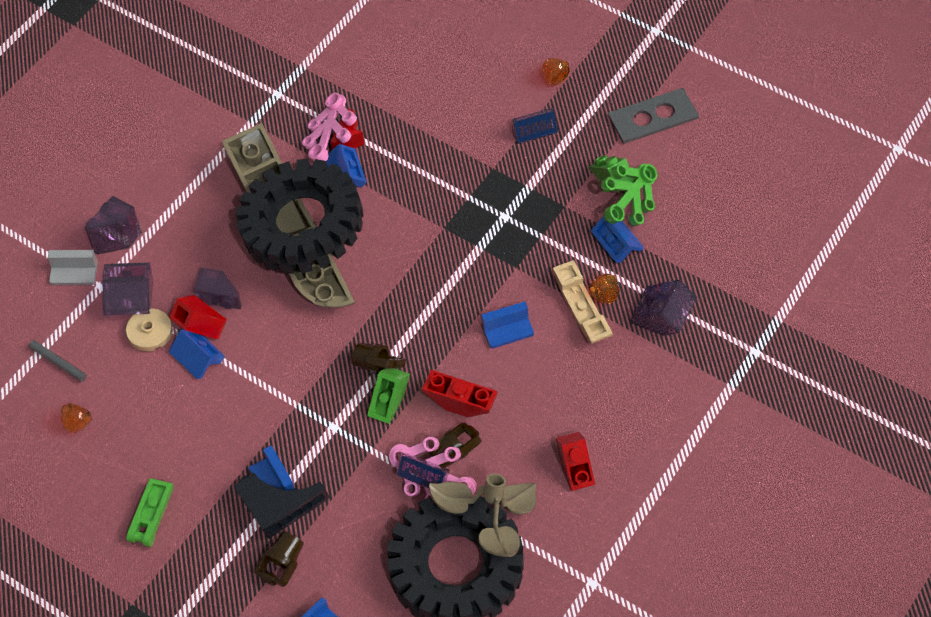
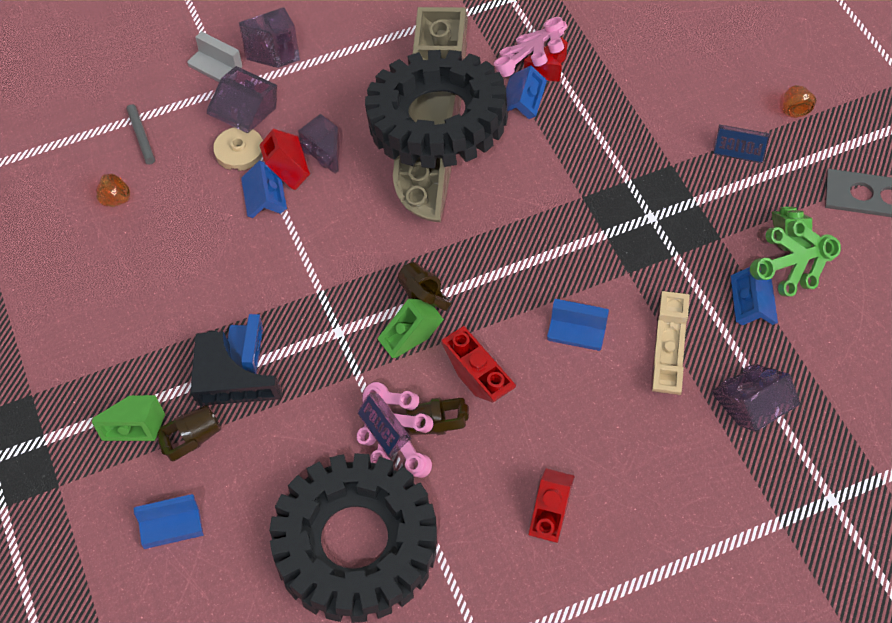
camera: 30 degrees right, 0 degrees up
(150, 512) = (109, 316): bright green plate -> none
(230, 575) = (130, 419): none -> bright green slope
(516, 498) = (462, 508): dark tan plant -> none
(605, 288) = (705, 341): clear orange cone -> none

